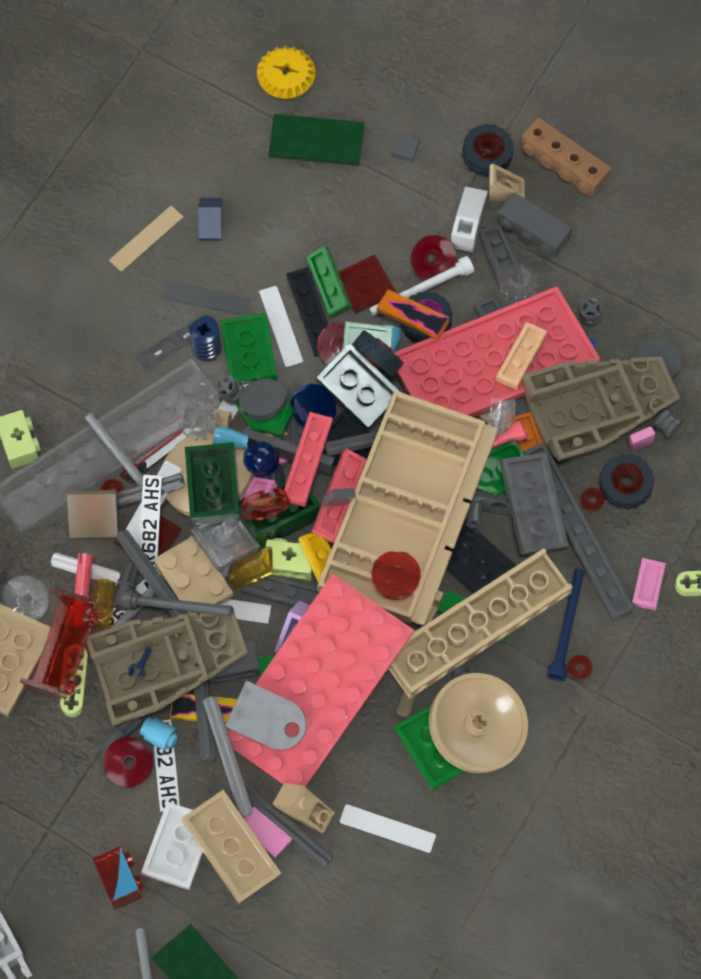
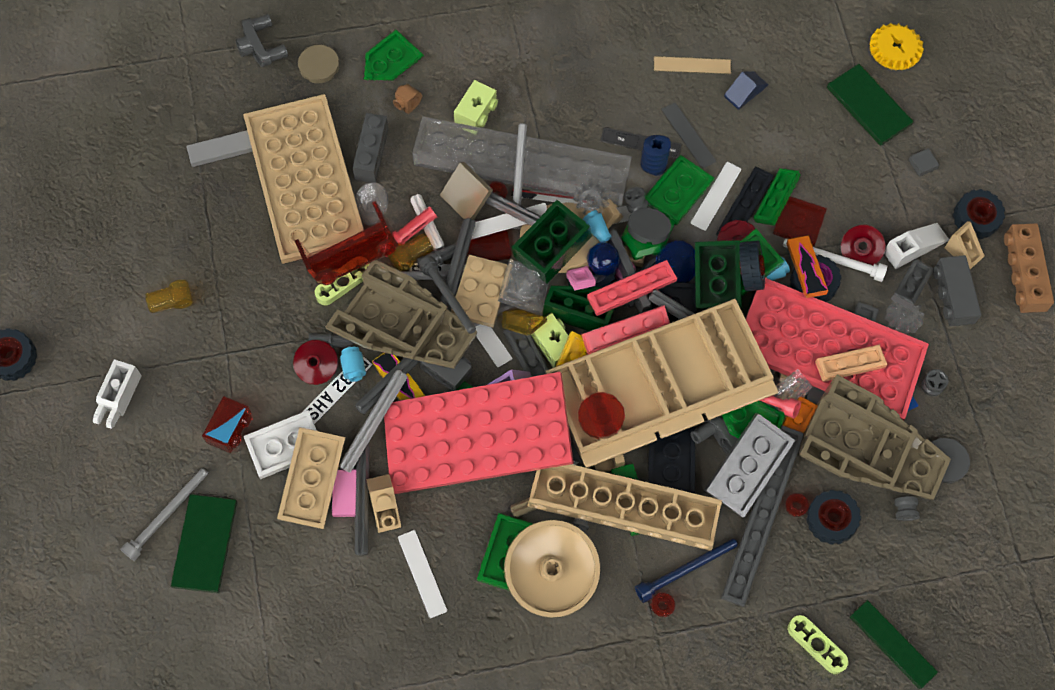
camera: 45 degrees right, 0 degrees up
(140, 665) = (385, 311): dark blue hand -> none
(150, 516) = (496, 227): white sticker -> none
(265, 505) = (568, 287): clear red tile -> none
(265, 717) = (420, 420): flat silver tile -> none
(339, 497) = (621, 329): dark grey tile -> none
(641, 439) = (875, 499): bright pink tile -> none
(648, 584) = (773, 600): bright pink tile -> none

